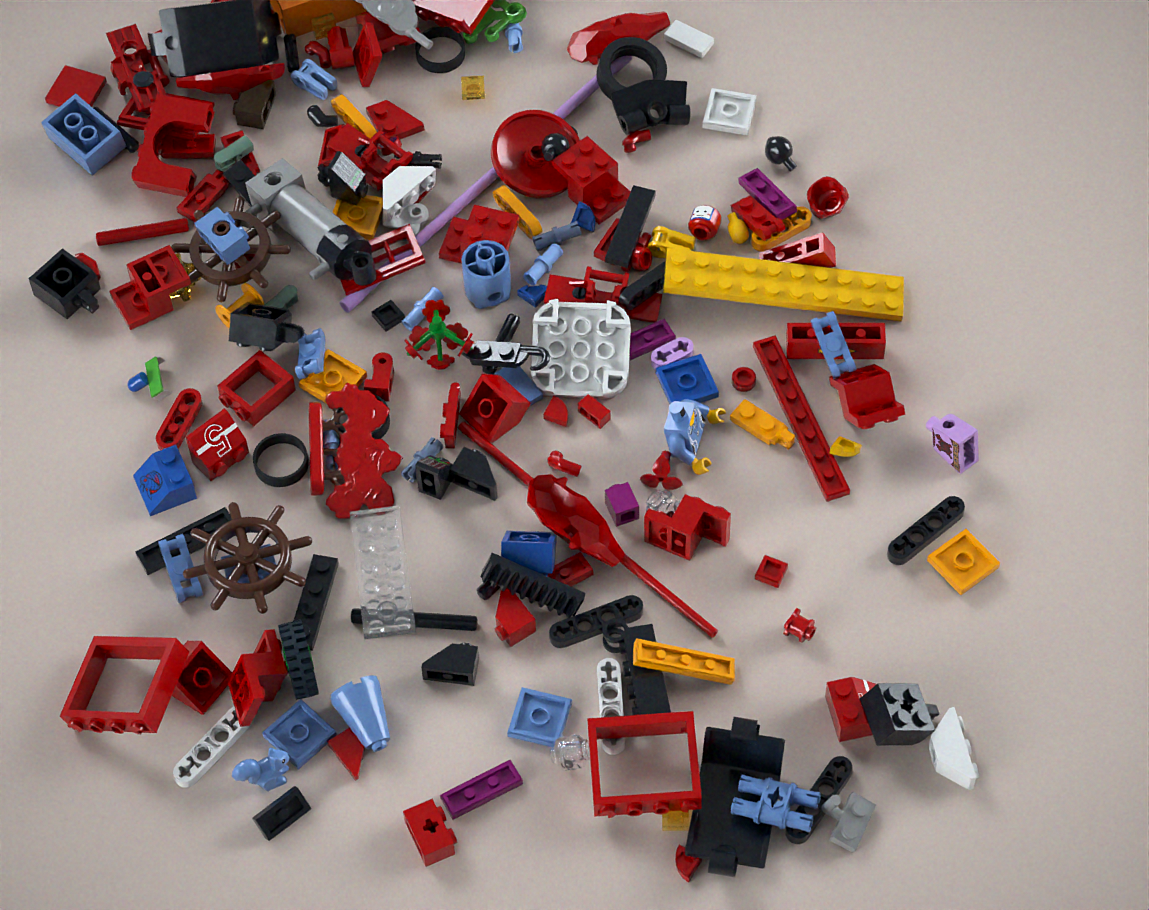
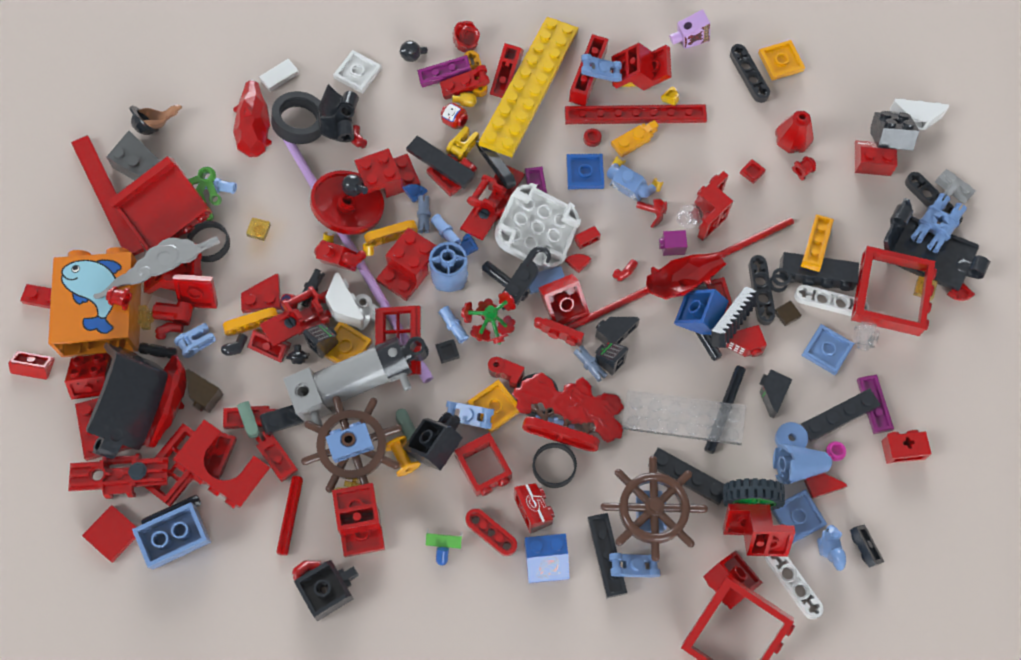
camera: 75 degrees left, 10 degrees up
(399, 755) = (836, 451): none -> dark pink plate
(401, 713) = (791, 429): none -> medium blue piece
(449, 748) = (840, 414): none -> black plate
(462, 165) = (340, 256): none -> red torso
(574, 659) = (787, 313): none -> dark brown tile
(671, 353) = (560, 173): lavender beam -> none
(849, 604) = (795, 132): none -> red cone

